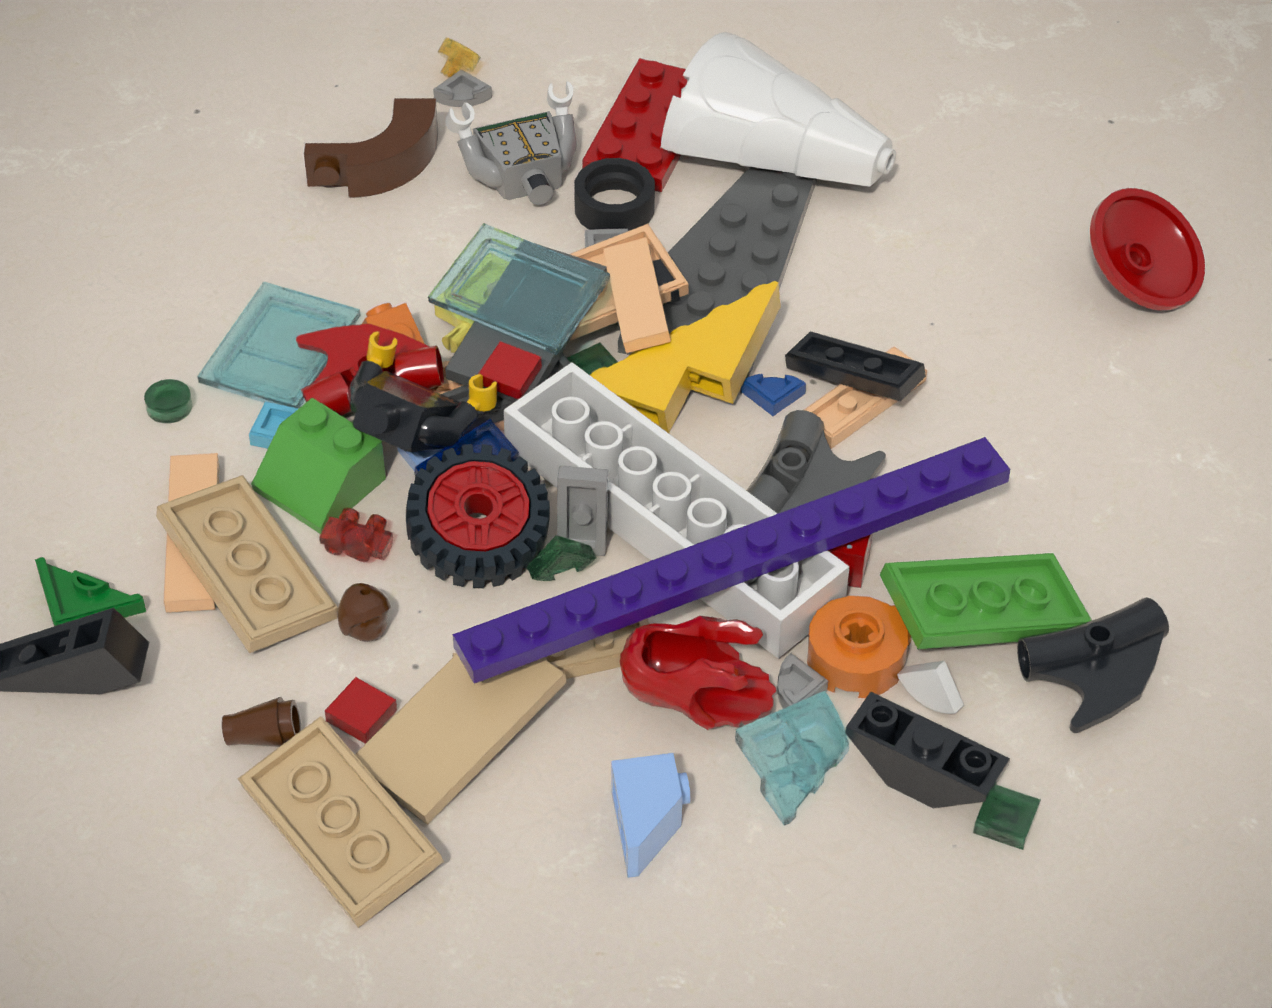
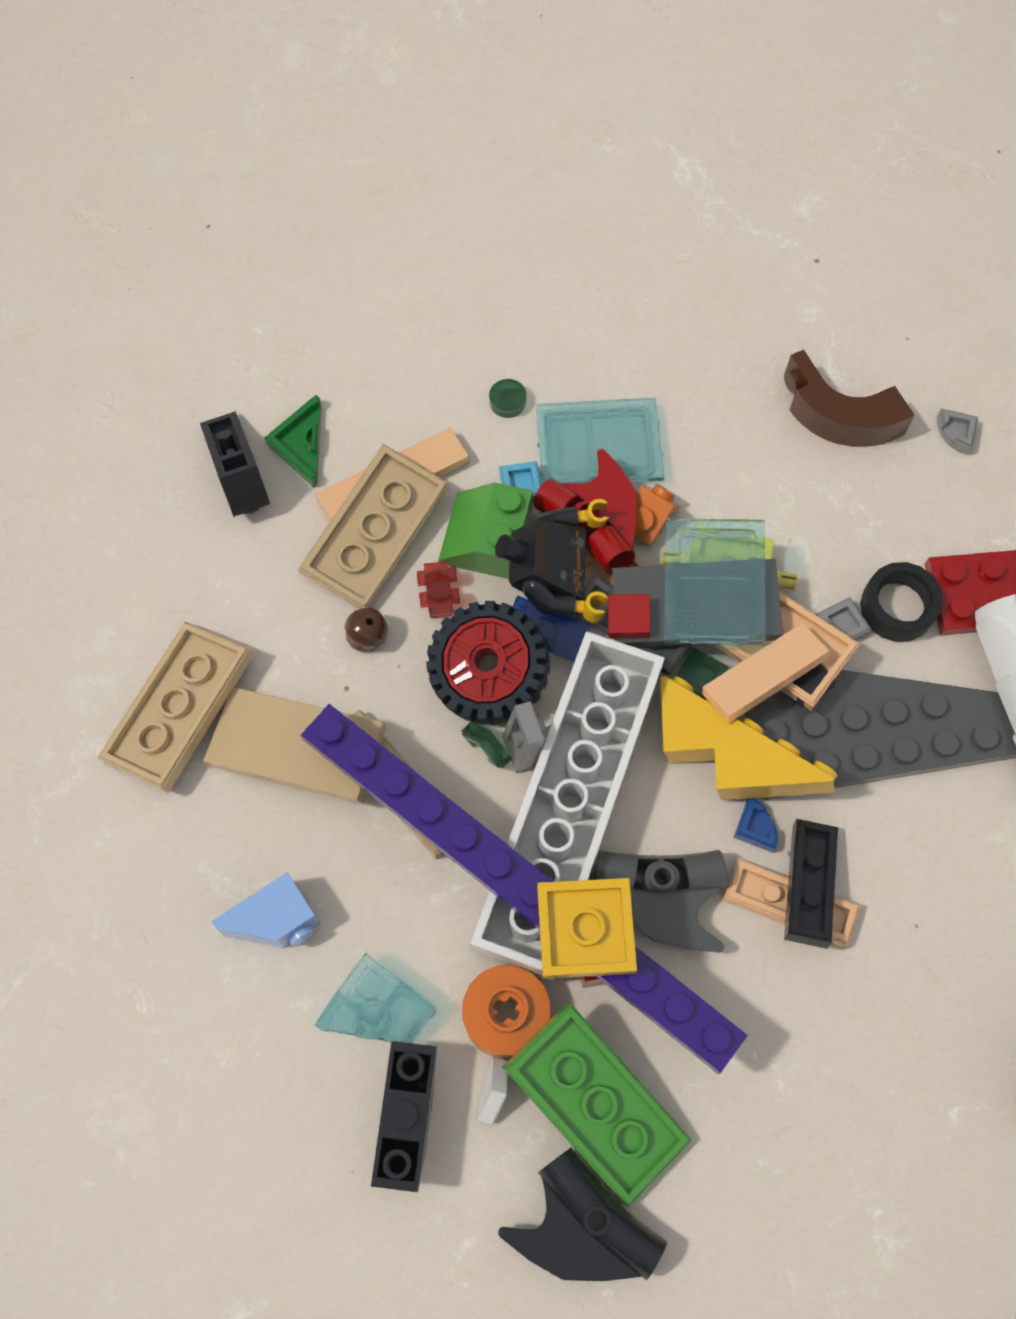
camera: 65 degrees right, 20 degrees up
(263, 724) = (236, 616): reddish brown cone -> none
(360, 710) = (283, 671): red tile -> none
(457, 57) = (988, 407): clear yellow tile -> none
(522, 153) = (903, 508): light grey torso -> none
(698, 671) = (407, 899): red hair -> none
(798, 681) = (450, 979): light grey tile -> none
(825, 497) = (586, 928): none -> yellow plate
(1007, 817) = (393, 1209): clear green tile -> none

